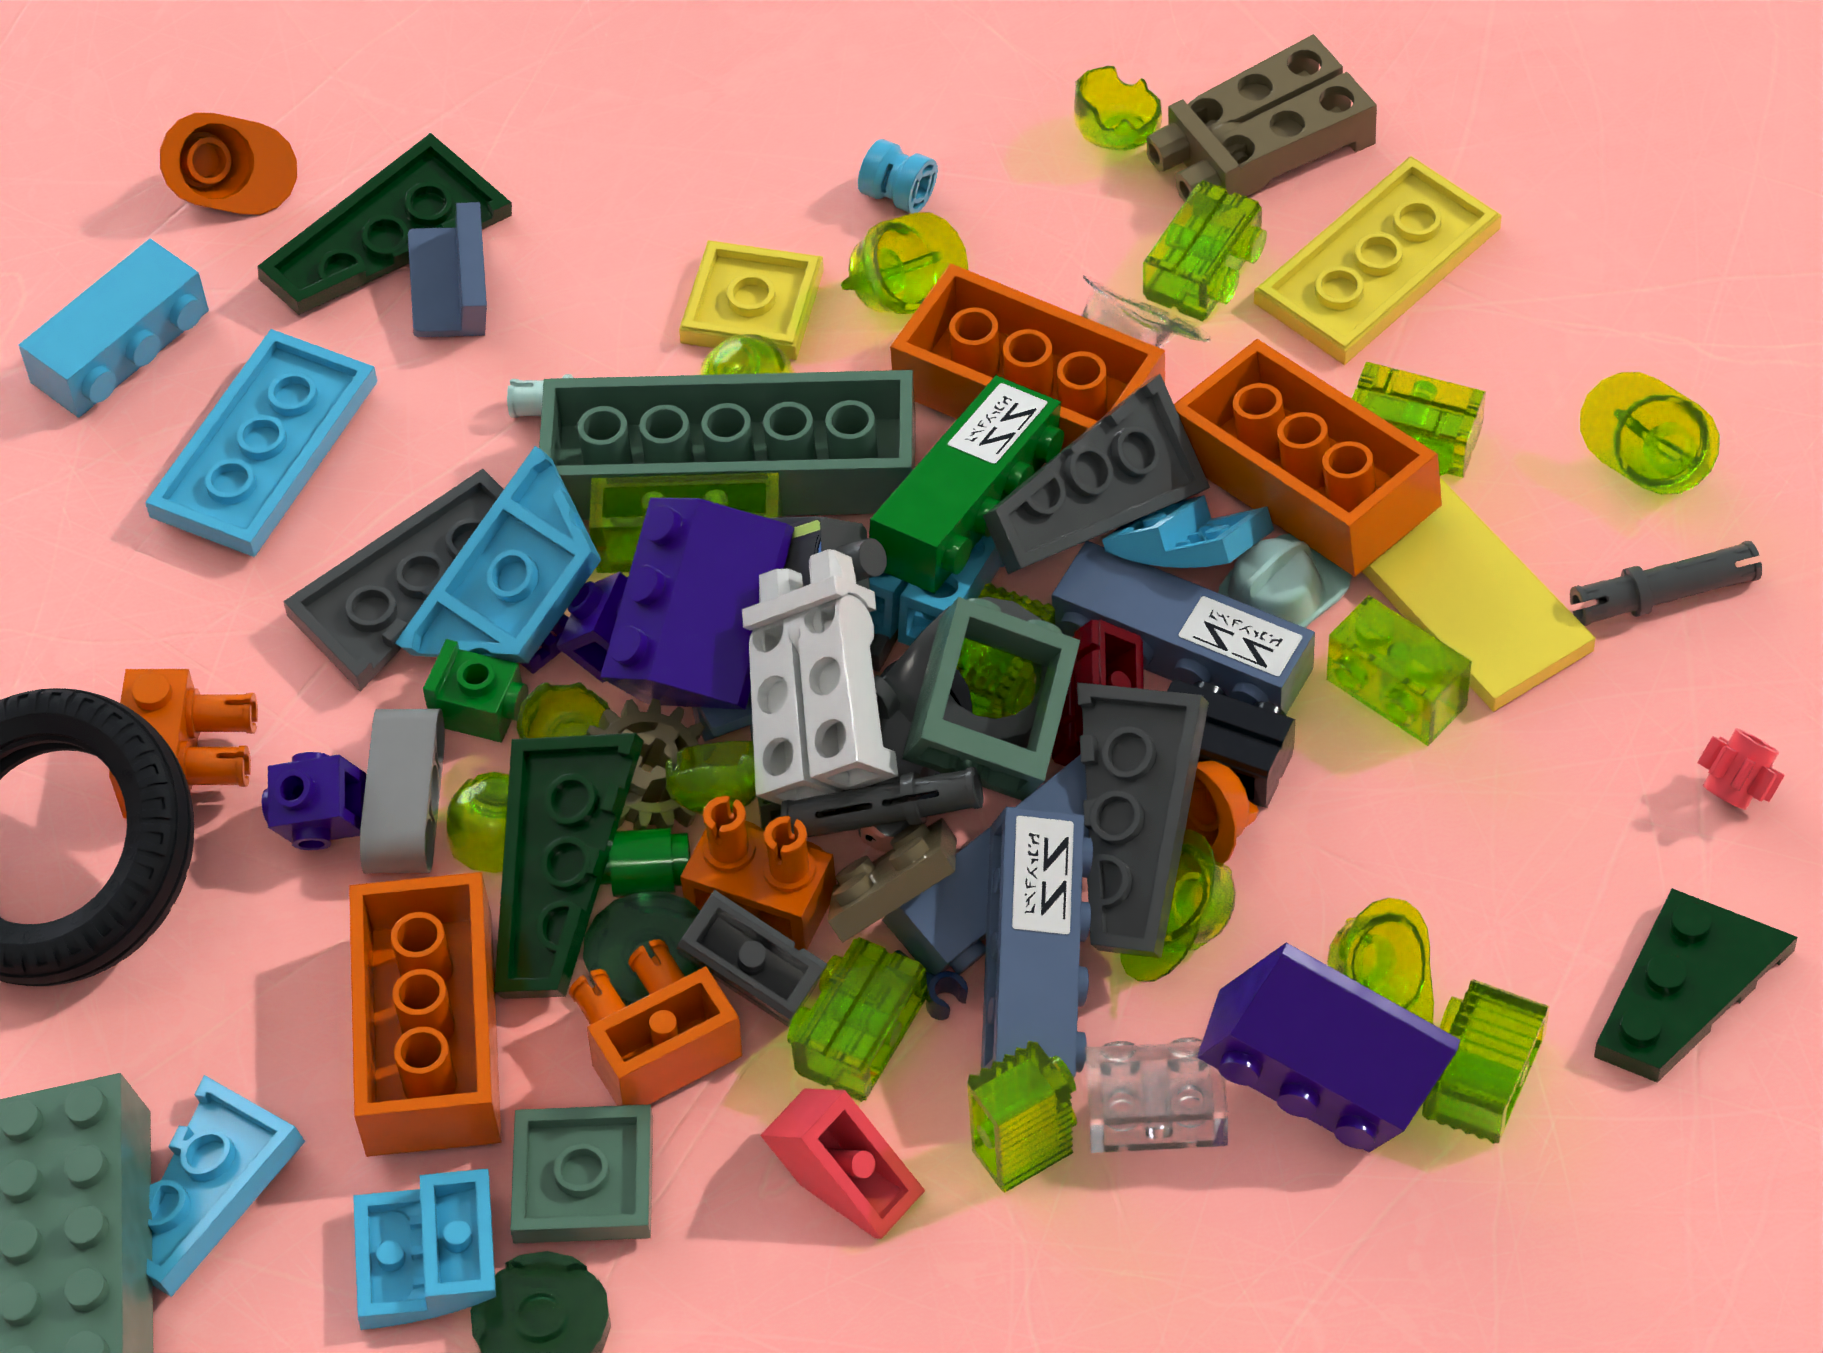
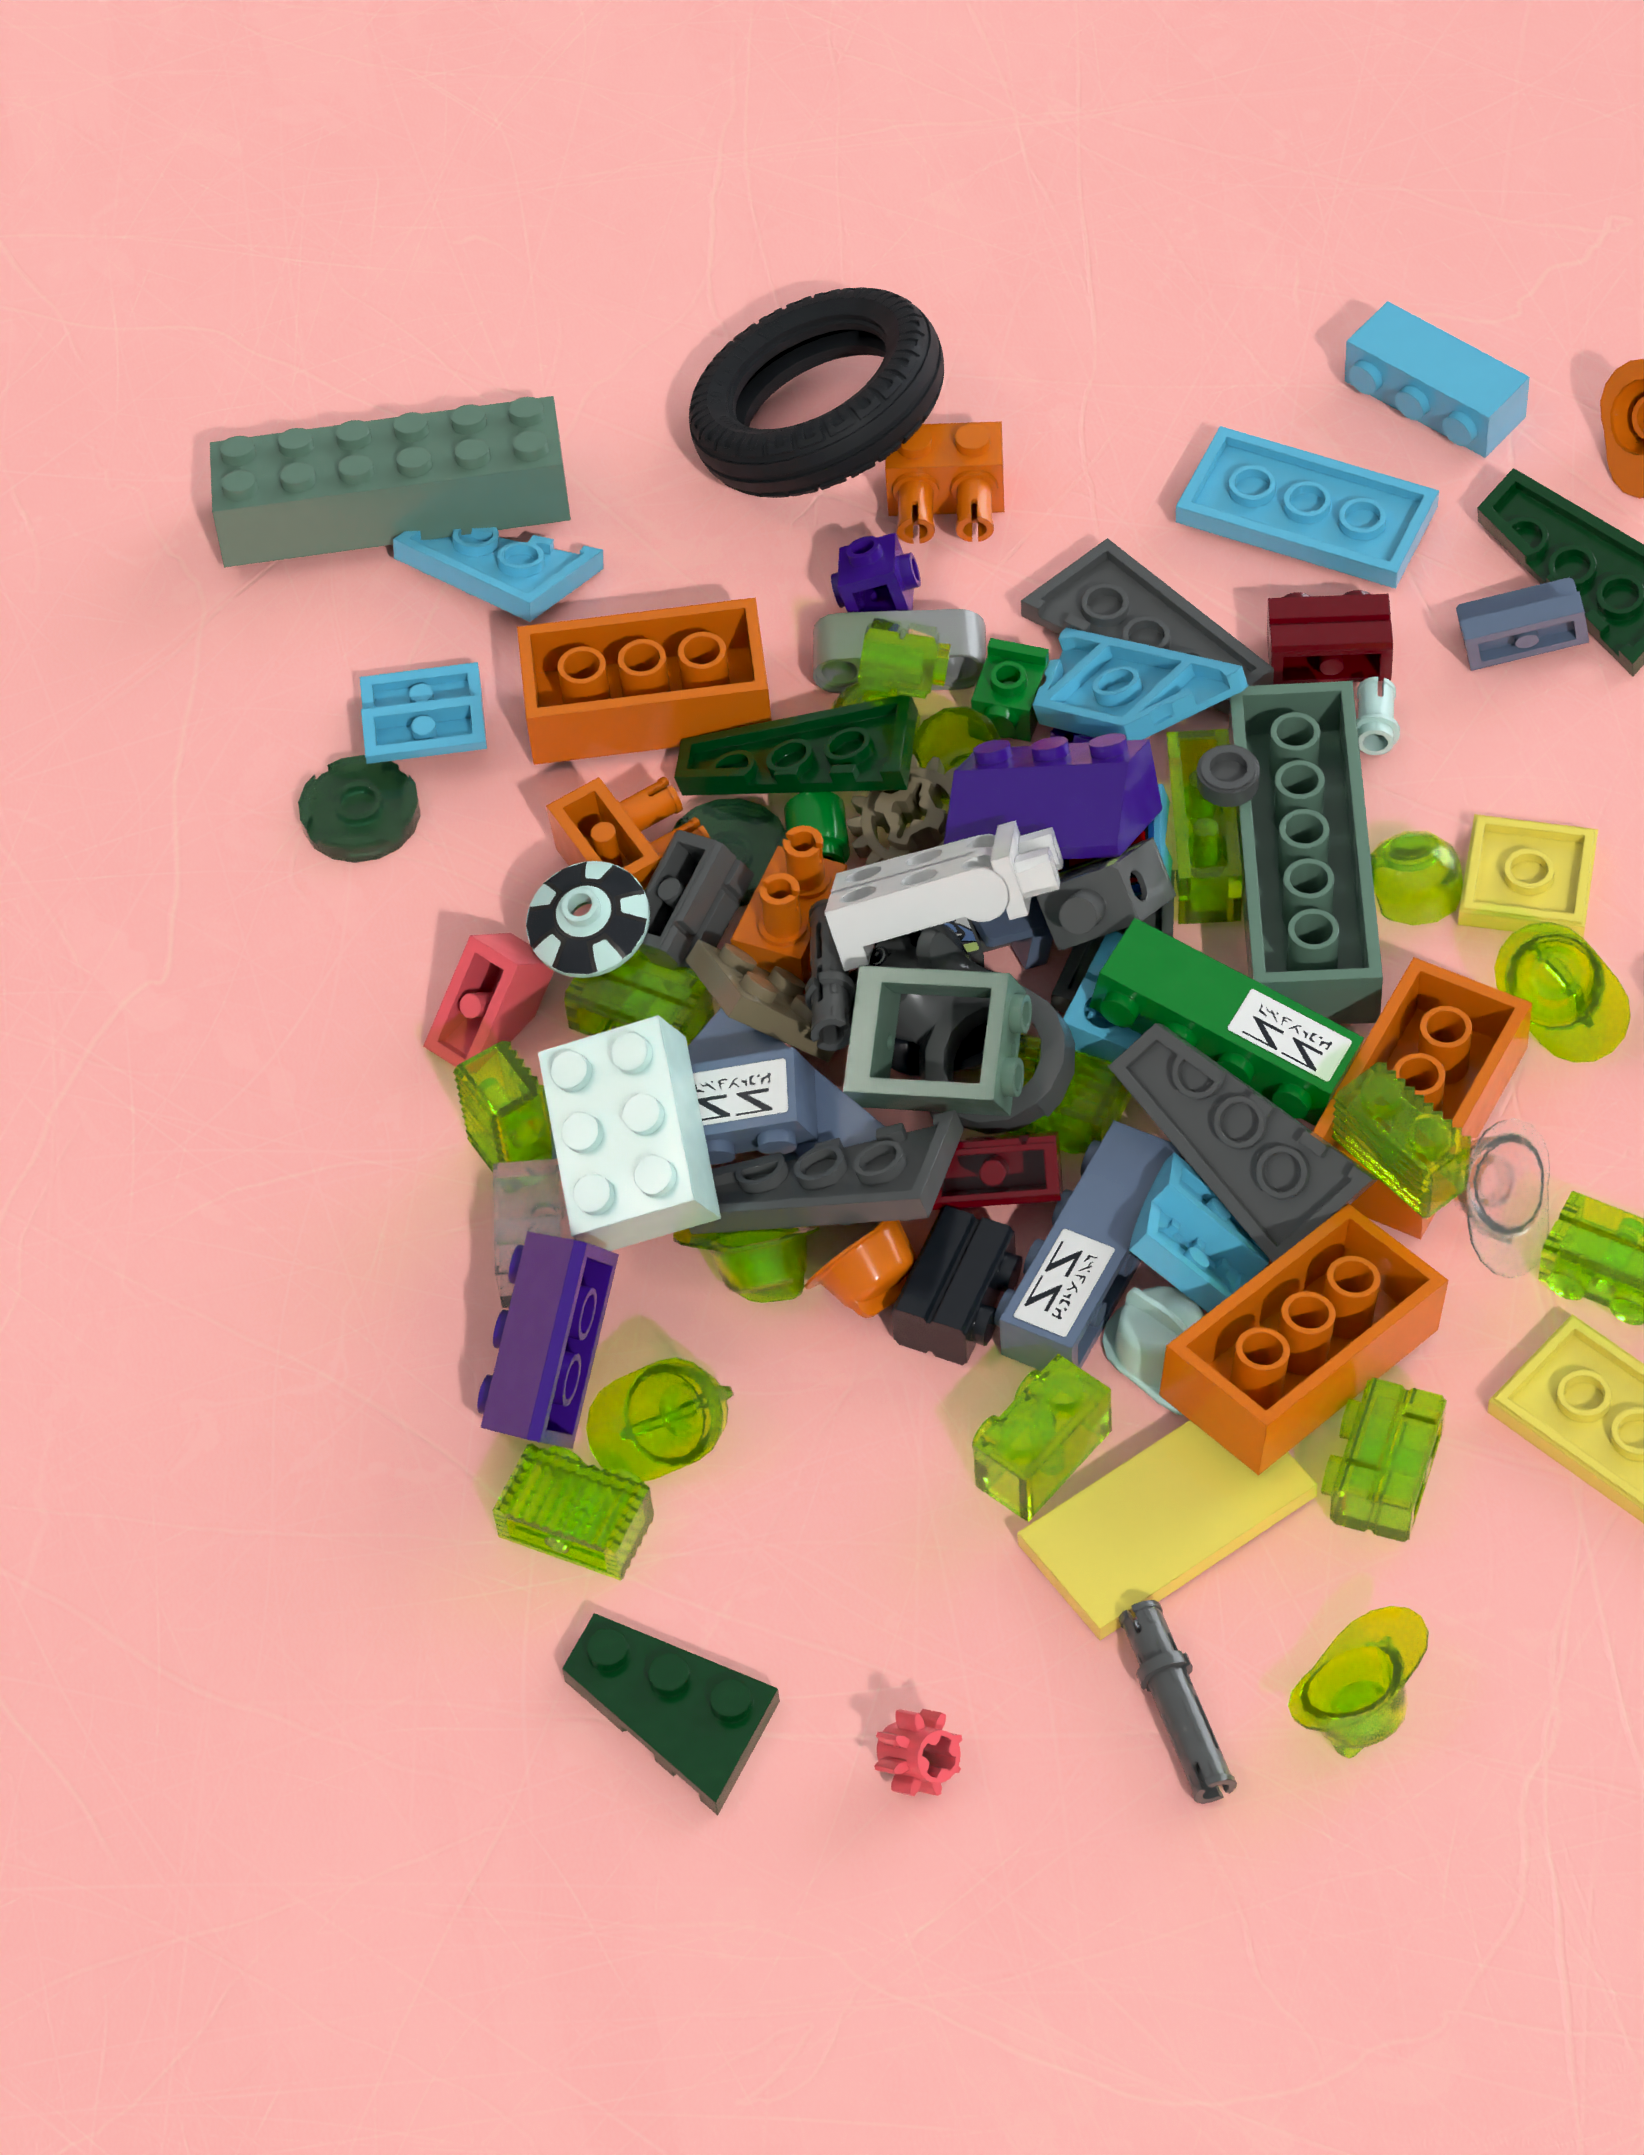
camera: 90 degrees right, 0 degrees up
(446, 424) = (1329, 637): none -> dark red brick
(468, 743) = (902, 658): none -> clear neon green brick
(582, 1174) = (490, 818): sand green plate -> none
(660, 471) = (1228, 775): none -> dark grey tile
(712, 772) = (865, 839): clear neon green hair -> none
(770, 1065) = (600, 938): none -> dish
(1091, 965) = (629, 1134): none -> light aqua brick
(1127, 340) = (1402, 1139): none -> clear neon green brick

